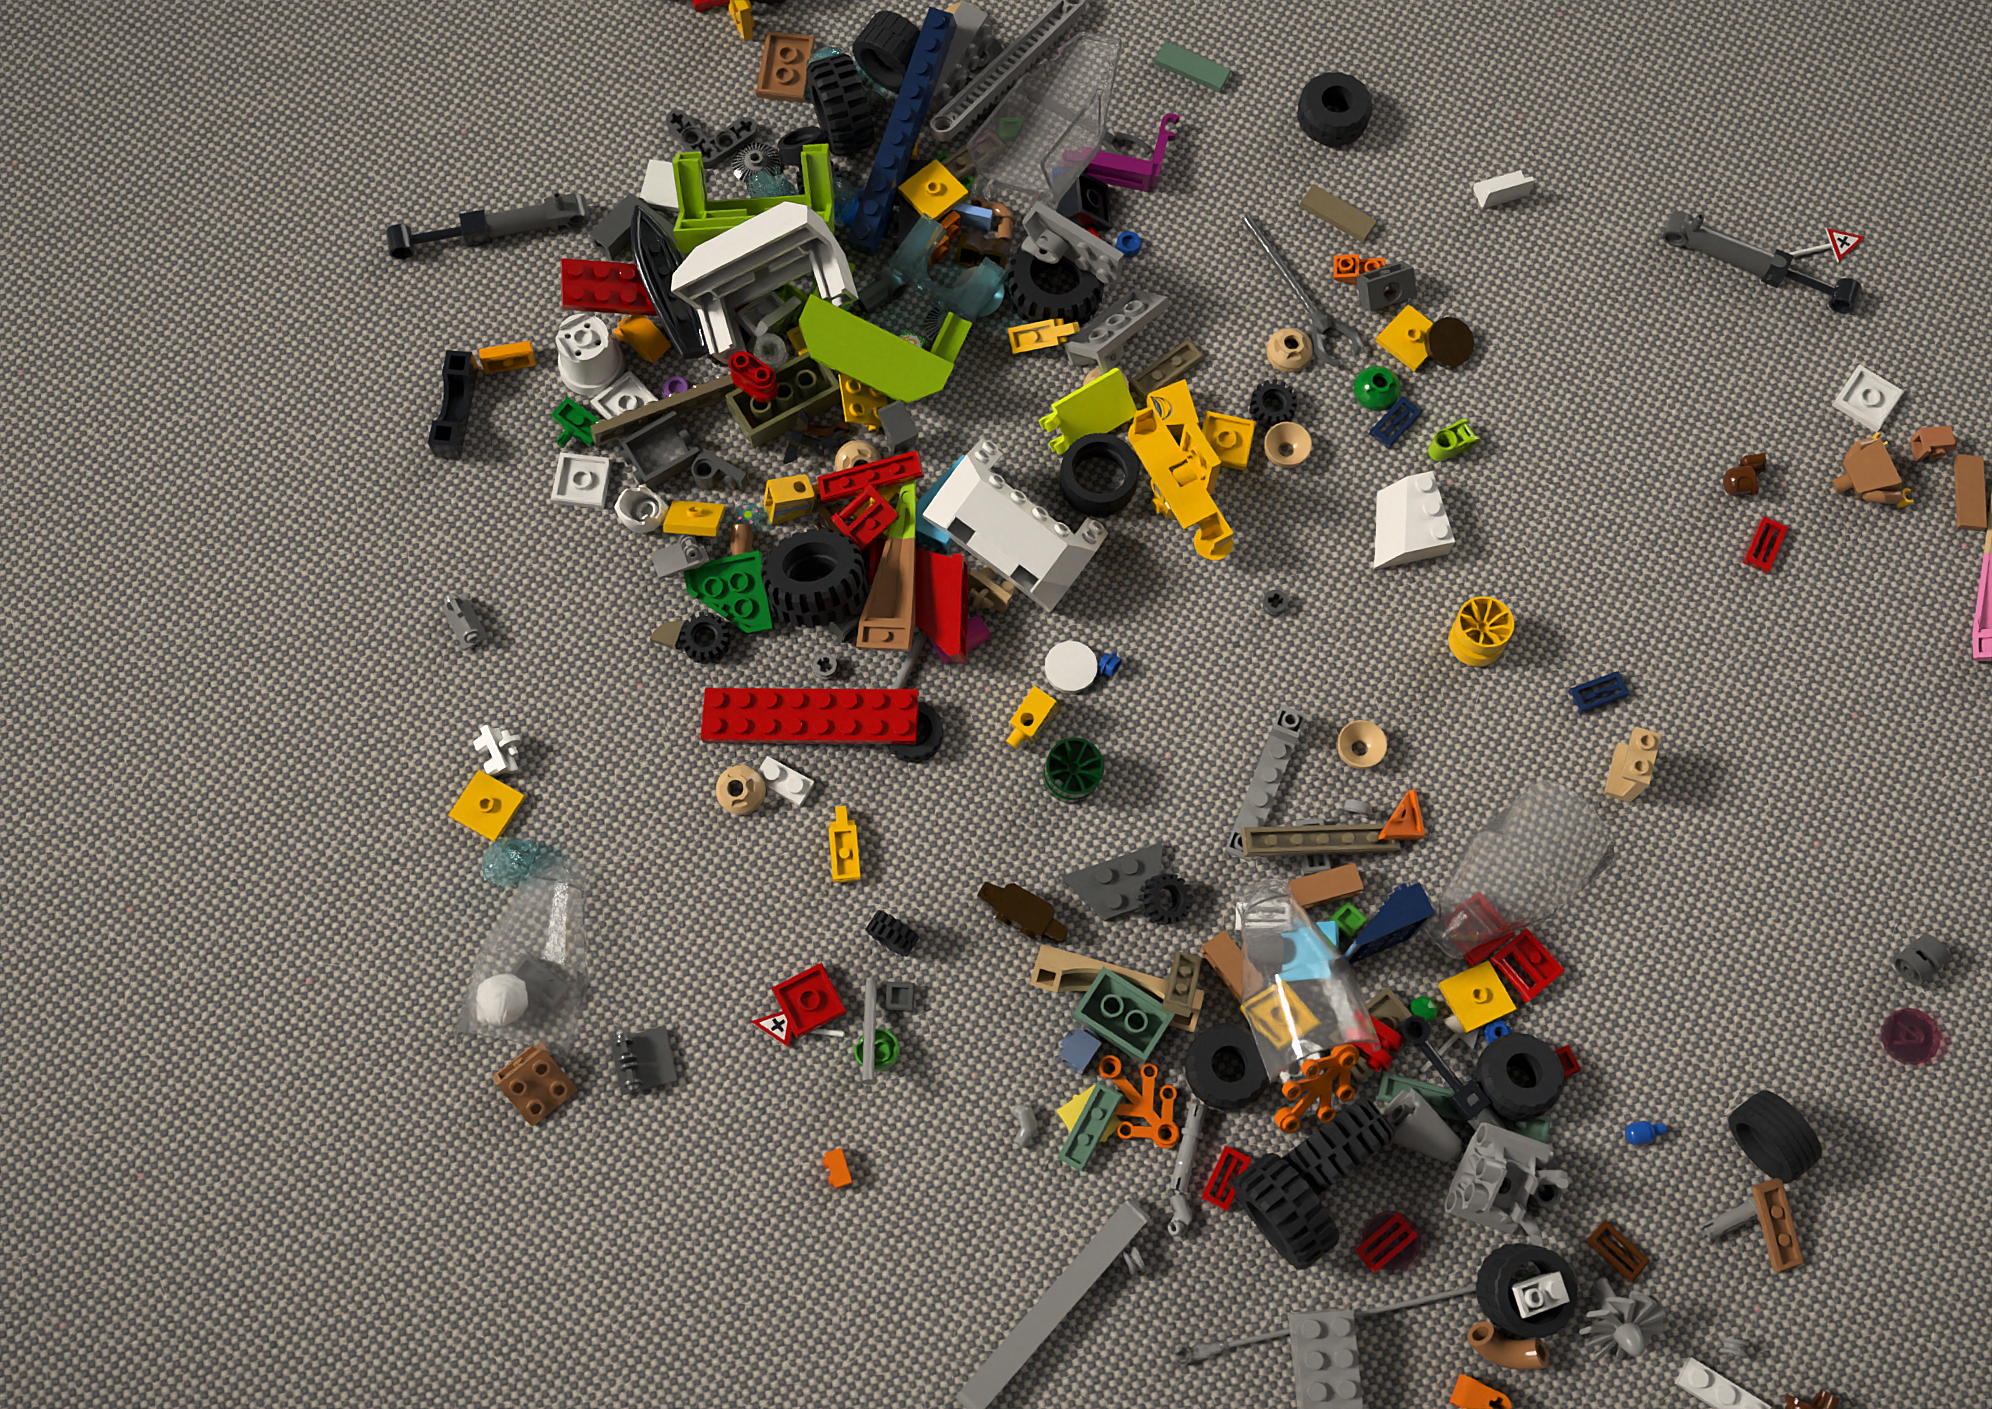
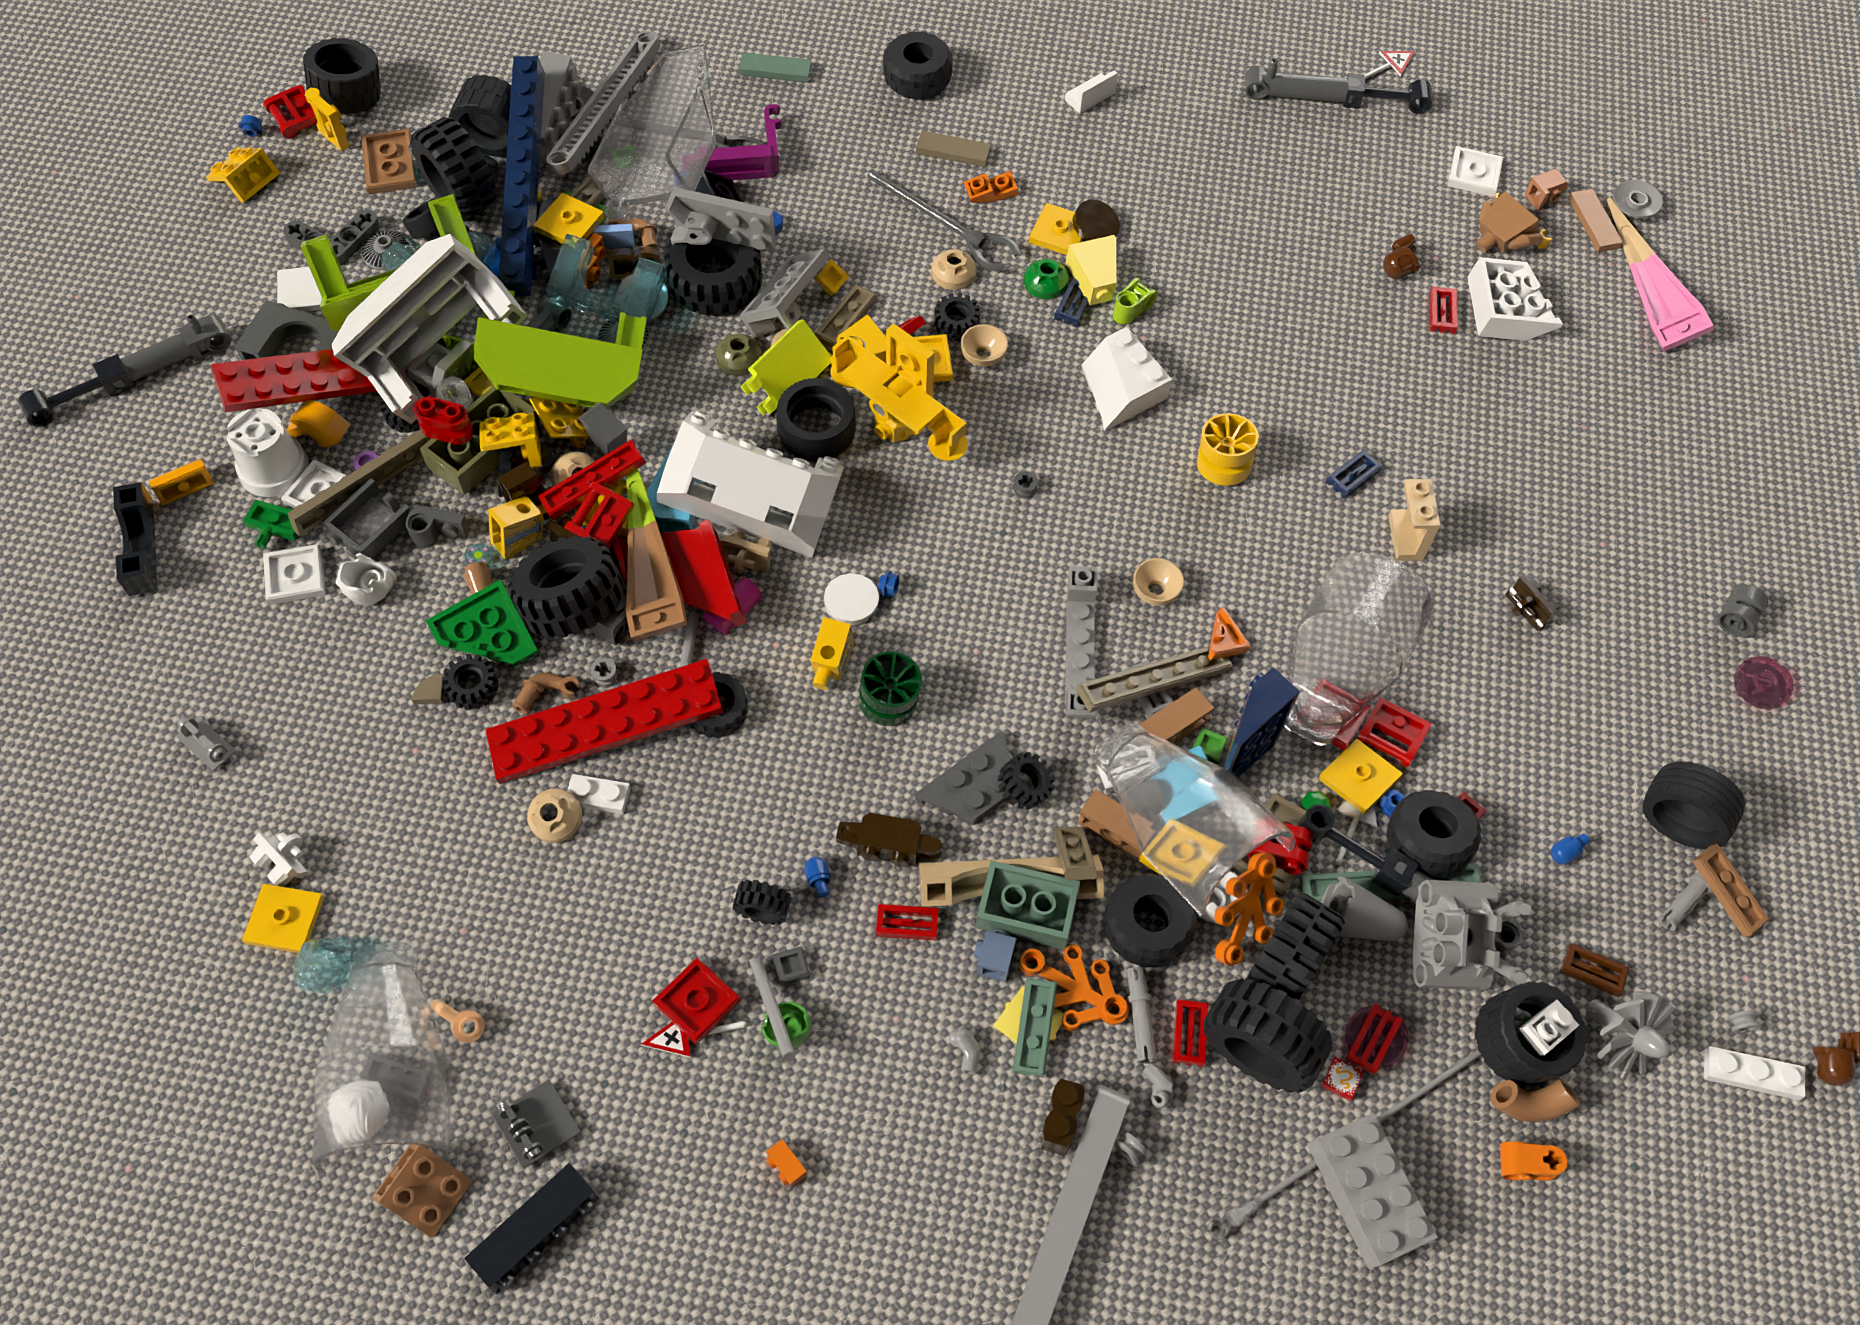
camera: 20 degrees left, 10 degrees down
(606, 948) = (458, 1020): none -> light nougat plate
(613, 1149) = (532, 1228): none -> black brick
(646, 40) = (244, 171): none -> yellow bracket
(656, 262) = (312, 347): black piece -> none
(679, 556) = (427, 605): light grey hinge -> none
(694, 518) = (423, 572): yellow plate -> none
(762, 660) = (537, 683): none -> medium nougat piece
(807, 461) = (522, 482): none -> dark brown brick
(811, 408) = (510, 432): none -> yellow bracket
(844, 848) = (682, 838): yellow hinge -> none
(950, 922) = (818, 875): none -> blue cylinder
(1009, 1002) = (907, 933): none -> red tile
(1040, 334) = (715, 314): yellow hinge -> none
(1050, 389) = (737, 361): none -> olive piece
(1088, 1208) = (1061, 1121): none -> dark brown brick
(1166, 325) = (831, 277): none -> yellow plate
(1222, 402) = (912, 324): none -> red tile
(1344, 1266) = (1342, 1078): none -> tile
(1357, 808) = (1177, 640): light grey tile -> none
(1373, 284) = (1009, 193): dark grey brick -> none
(1427, 393) = (1094, 268): none -> light yellow slope
(1714, 883) = (1531, 603): none -> dark brown hips
(1835, 558) = (1509, 301): none -> white wedge

